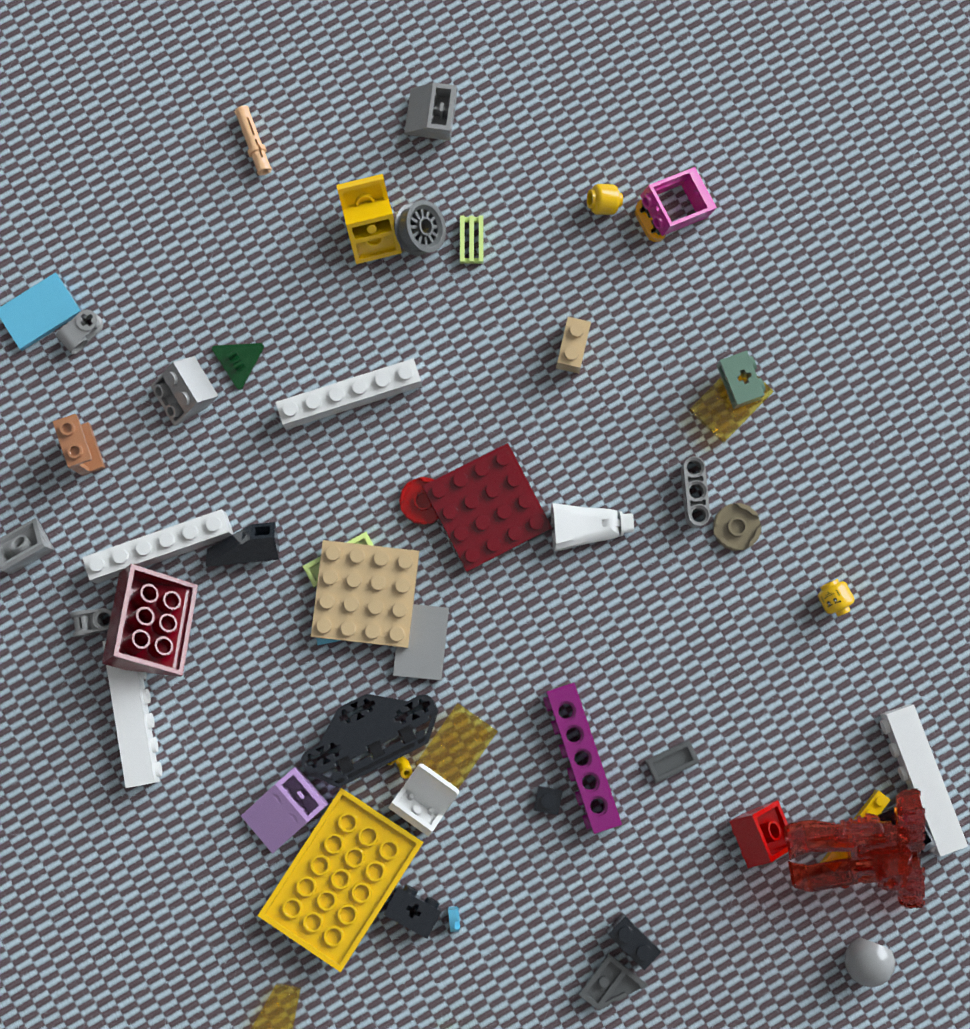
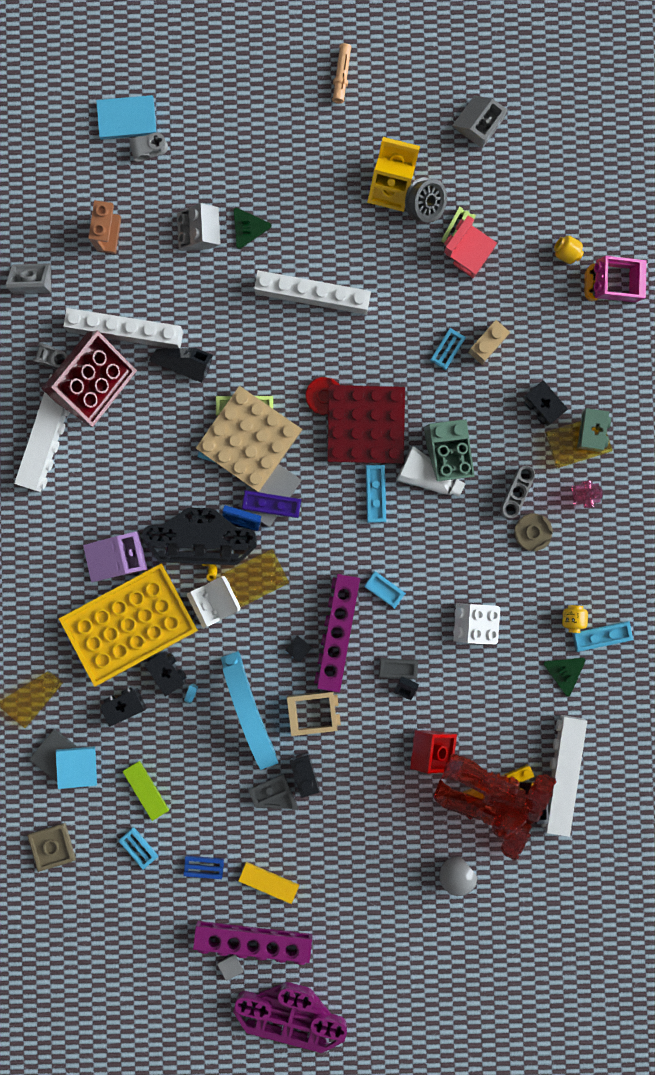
camera: 30 degrees right, 5 degrees up
(381, 992) = (114, 714): none -> black brick
(405, 686) = (242, 518): none -> blue tile
(429, 653) = (271, 504): none -> dark purple tile
(495, 254) = (469, 247): none -> coral piece
(530, 396) = (439, 362): none -> medium azure tile
(530, 903) = (247, 711): none -> medium azure arch
(539, 578) = (375, 493): none -> medium azure tile
(595, 486) = (449, 449): none -> sand green slope
(608, 680) = (384, 589): none -> medium azure tile
(633, 857) = (293, 717): none -> tan window
(684, 379) = (541, 394): none -> black brick
(693, 778) = (406, 688): none -> black plate
(731, 663) = (476, 623): none -> white bracket
(765, 456) = (580, 494): none -> clear pink brick
(859, 663) = (565, 672): none -> dark green piece
(877, 600) = (602, 636): none -> medium azure tile

